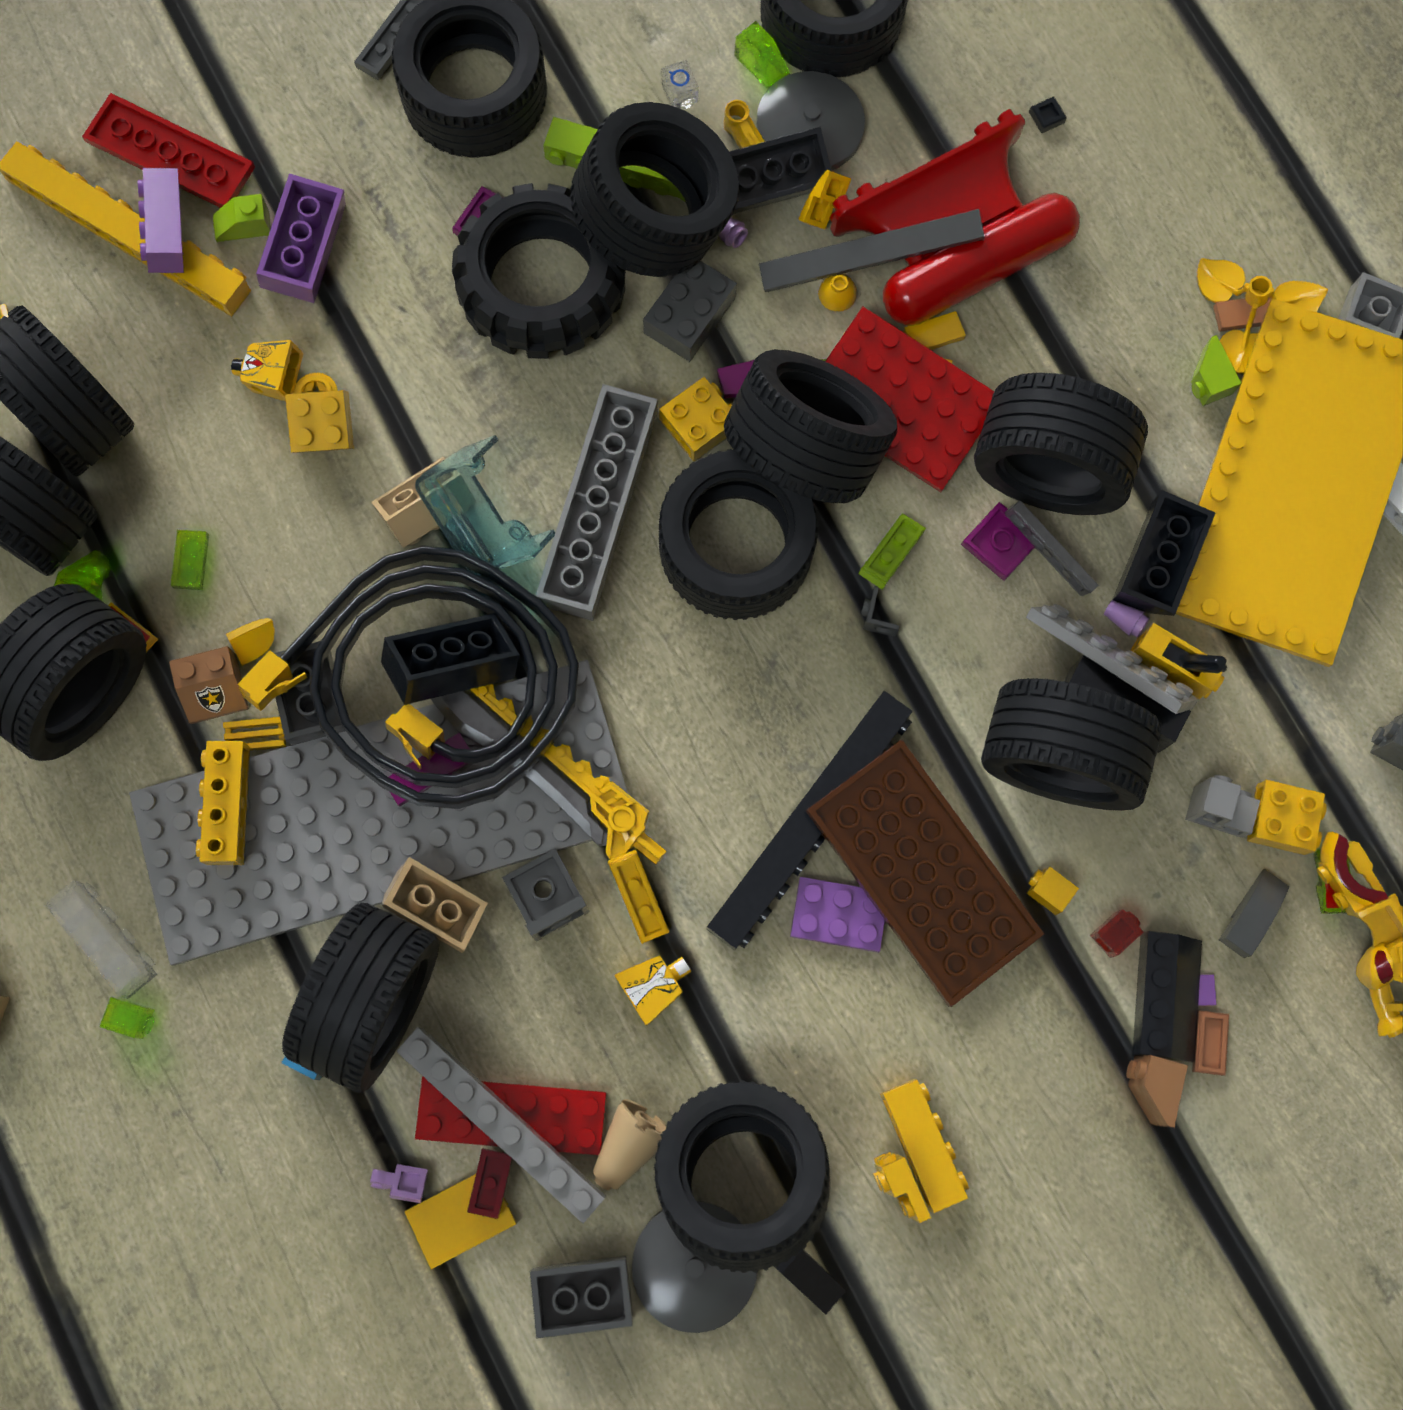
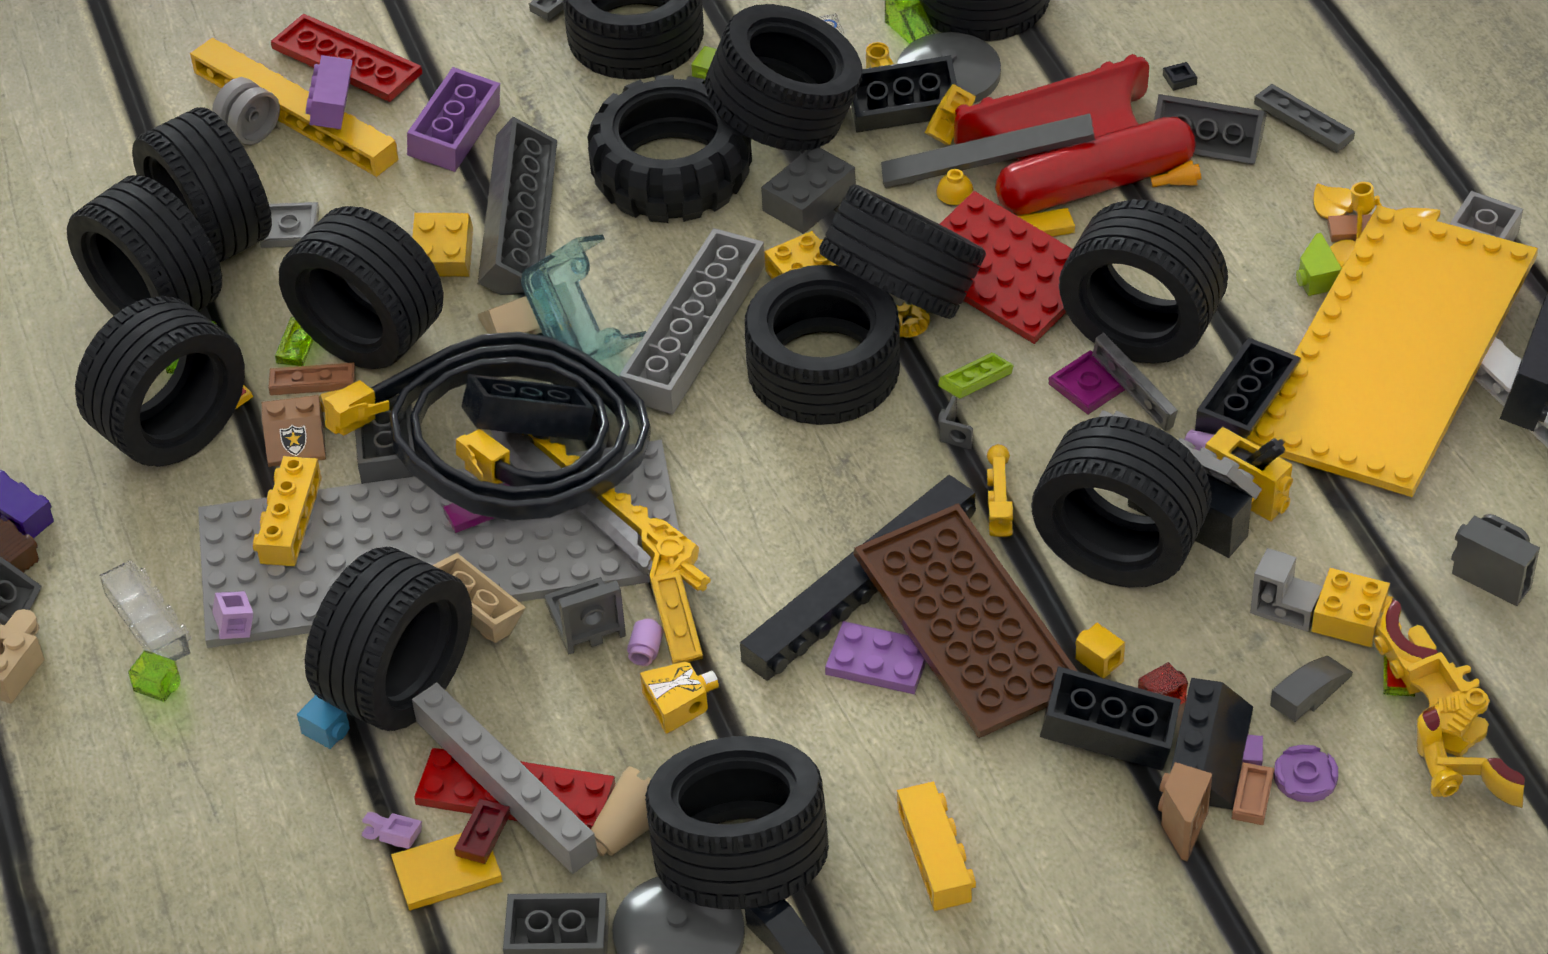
camera: 15 degrees right, 30 degrees down
(74, 248) = (247, 109): none -> light grey wheel
(152, 393) = (290, 223): none -> light grey tile
(198, 955) = (232, 614): none -> lavender brick
(214, 605) = (310, 378): none -> nougat tile
(242, 218) = (401, 104): lime slope -> none
(248, 520) = (361, 287): none -> black tyre
(253, 723) = (338, 469): yellow tile -> none
(269, 368) = (404, 200): yellow torso -> none
(391, 359) = (517, 206): none -> dark grey slope
(610, 922) = (645, 642): none -> lavender brick
(734, 233) = (857, 137): lavender cone -> none
(896, 1179) = (902, 866): yellow plate -> none
(937, 730) = (999, 508): none -> yellow plate
(1067, 257) = (1185, 174): none -> light orange cone
(1075, 982) = (1110, 718): none -> black brick
(1101, 191) = (1218, 128): none -> dark grey slope
(1180, 167) = (1304, 117): none -> dark grey plate
(1257, 1013) = (1306, 773): none -> medium lavender tile

